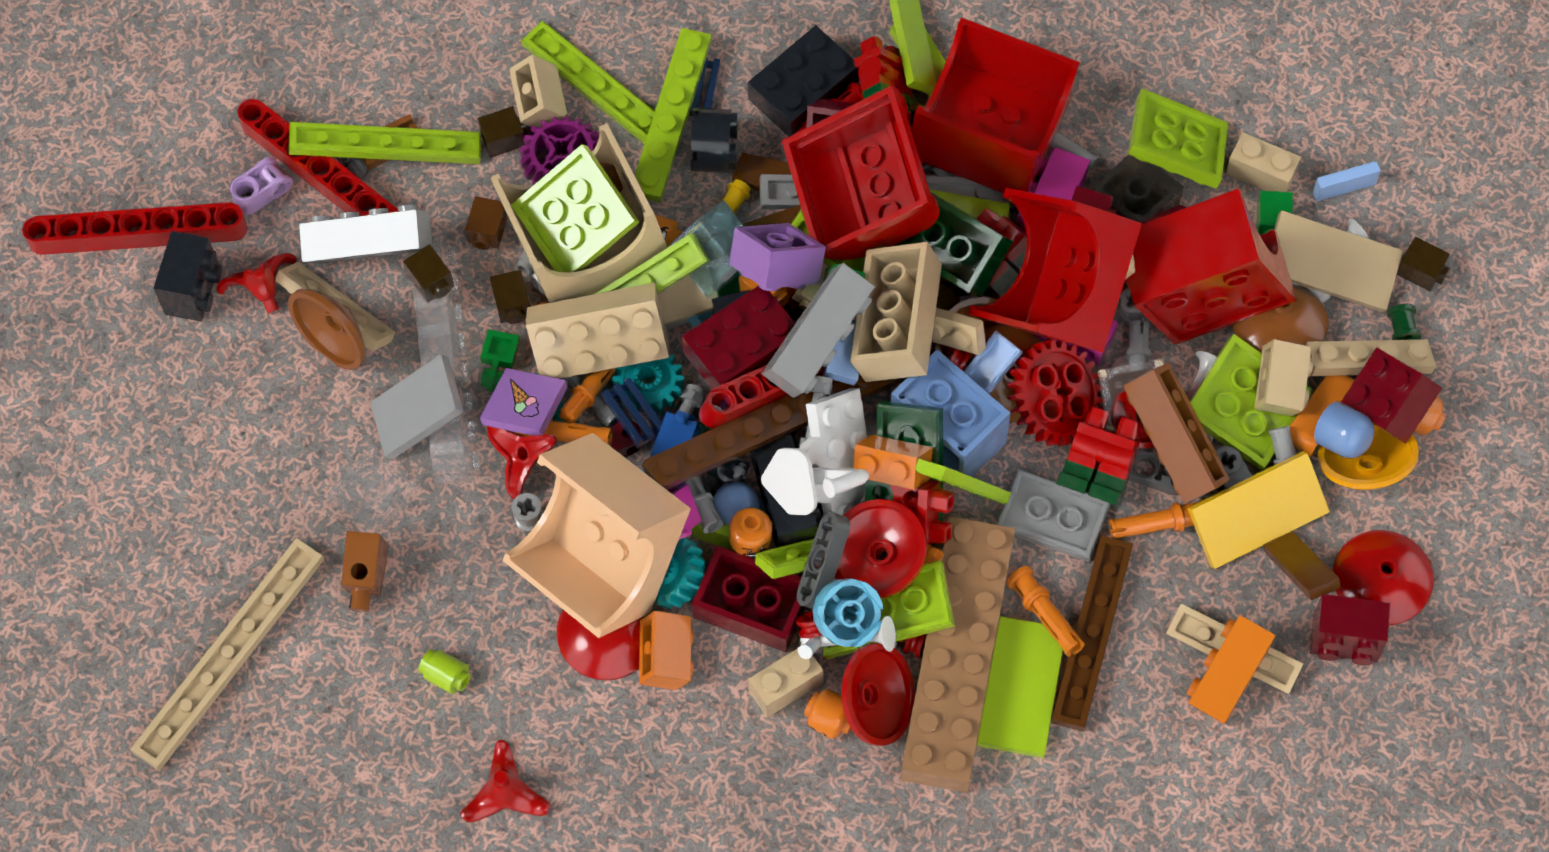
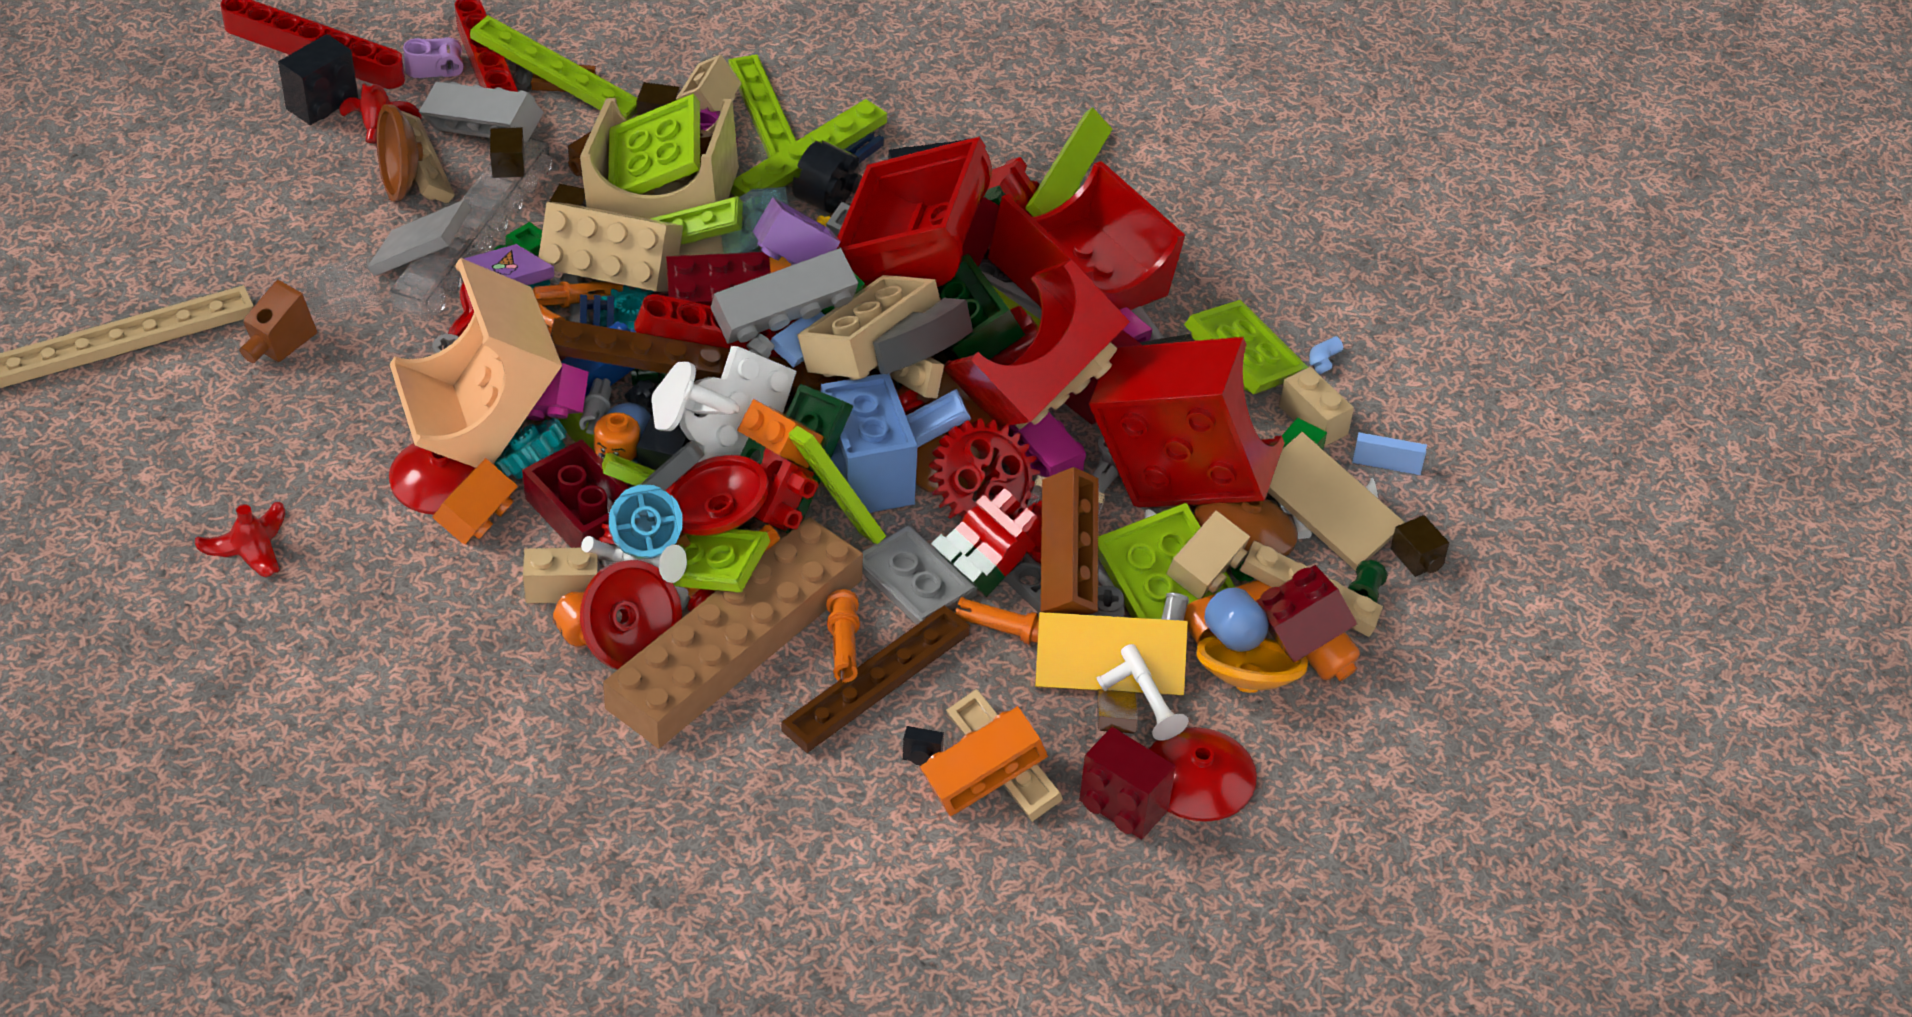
camera: 25 degrees right, 20 degrees down
(444, 671) = (278, 431): lime brick -> none
(950, 301) = (923, 335): none -> dark grey slope
(1020, 688) = (771, 690): lime tile -> none
(1171, 678) = (921, 744): none -> black plate
(1229, 102) = (1321, 352): none -> light blue arm
(1289, 514) = (1168, 723): none -> white piece

